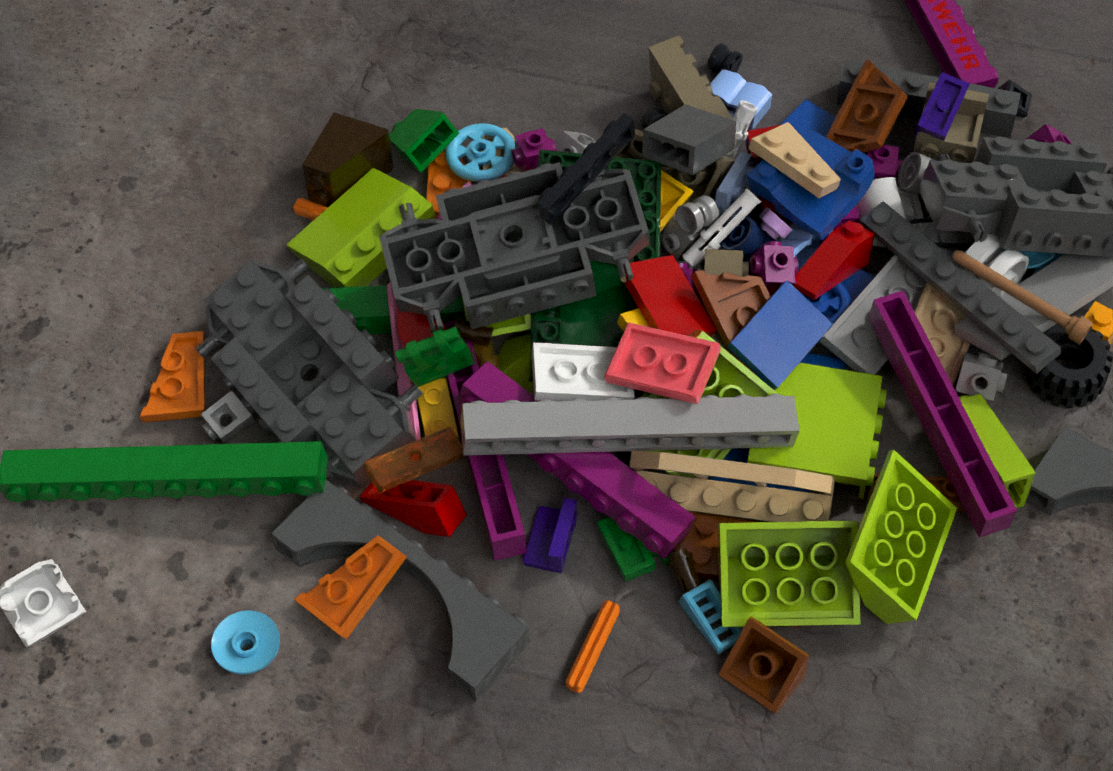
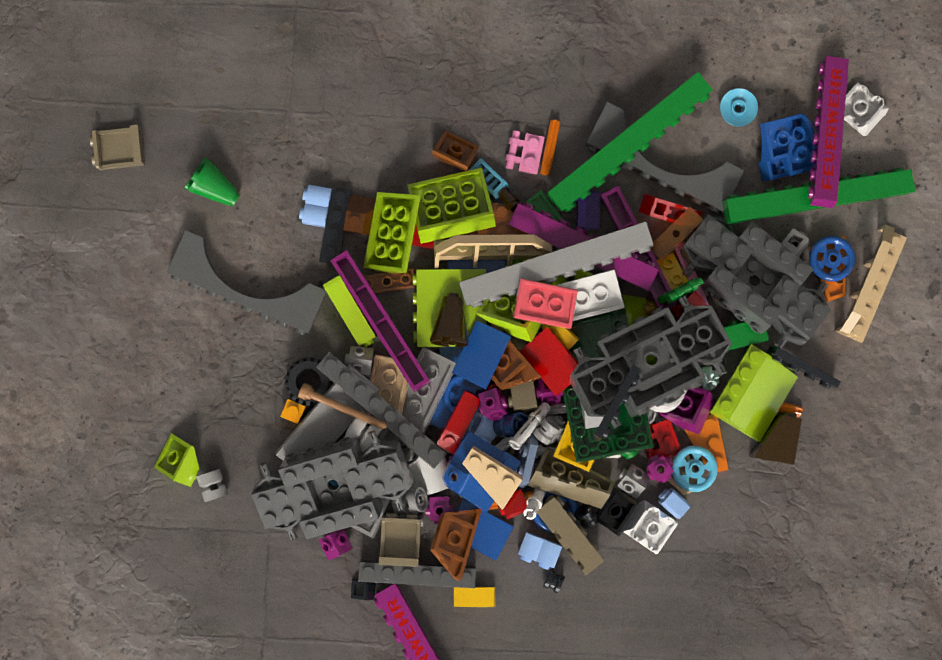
camera: 160 degrees right, 30 degrees up
(107, 560) = (829, 132): none -> magenta brick
(123, 339) = (874, 285): none -> tan plate
(183, 557) = (786, 147): none -> blue slope
(186, 403) = (835, 274): none -> blue plate
(272, 244) = (796, 364): none -> black plate
(351, 590) = (689, 150): orange wing -> none
(422, 137) = (736, 470): green torso -> none
(451, 604) = (629, 142): none -> green brick
(523, 108) = (673, 502): none -> light blue brick
(568, 102) = (650, 527): none -> white slope
(605, 108) = (617, 511): none -> black slope
(629, 642) = (530, 155): none -> bright pink plate
(689, 139) = (561, 479): dark grey brick -> none
(773, 224) = (498, 437): lavender plate -> none
(824, 379) = (450, 323): none -> dark brown cone
(831, 60) = (474, 597): none -> yellow slope
(942, 106) = (407, 539): dark purple panel -> none
(950, 597) = (359, 215): none -> reddish brown slope
(996, 594) = (334, 226): none -> black plate
(1028, 626) = (316, 205): none -> light blue brick

